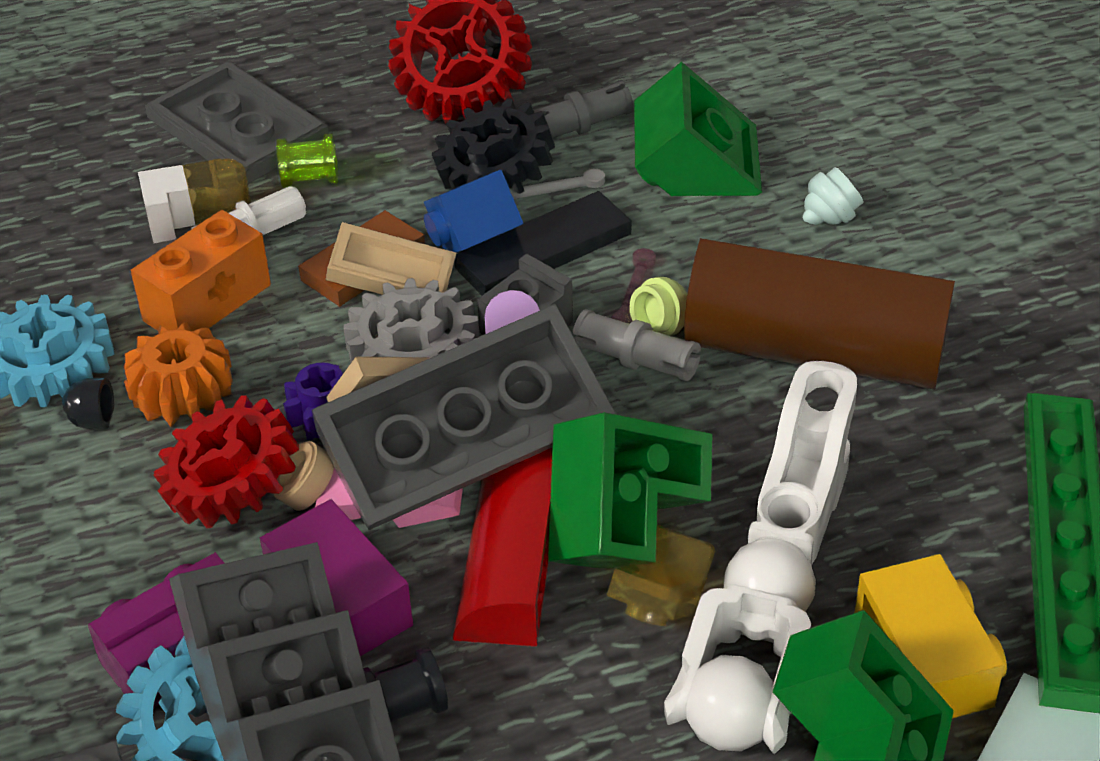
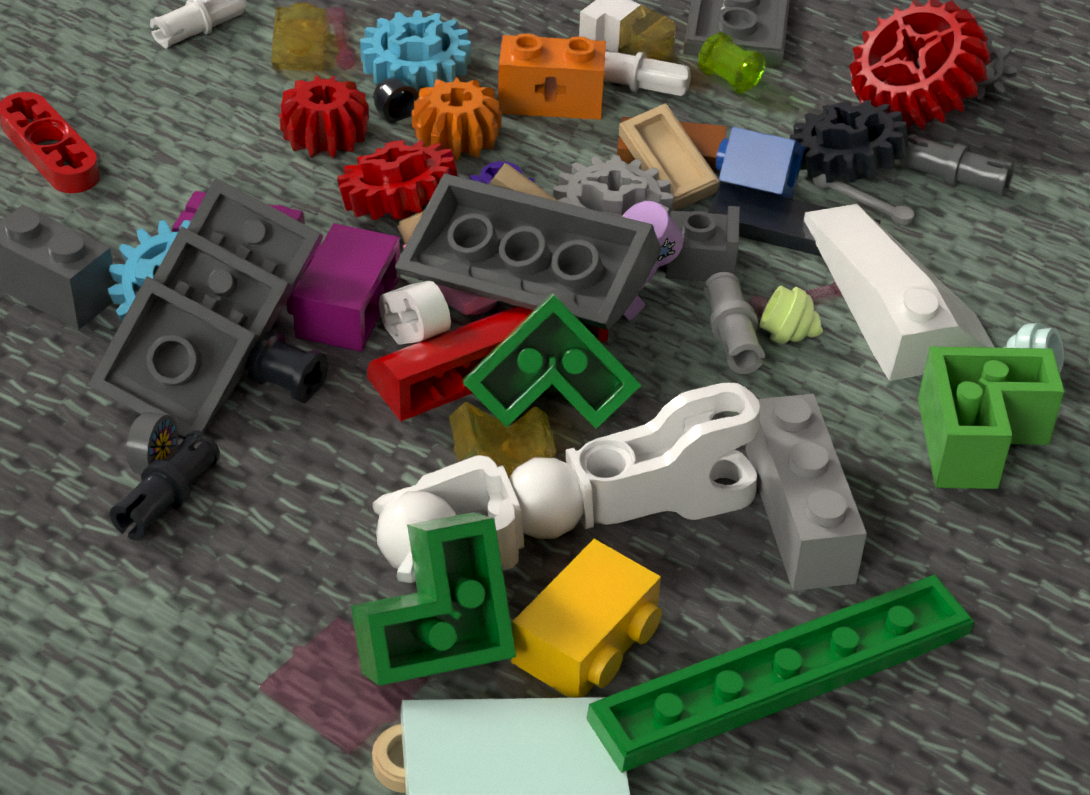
camera: 50 degrees right, 0 degrees up
(60, 468) = (324, 115): none -> red gear
(447, 555) = (415, 312): none -> white beam
(668, 226) = (891, 292): none -> white wedge
(694, 139) = (1003, 242): green slope -> none
(818, 310) = (864, 404): reddish brown brick -> none
(893, 232) = (980, 404): none -> bright green brick
(906, 414) = (806, 494): none -> light grey brick

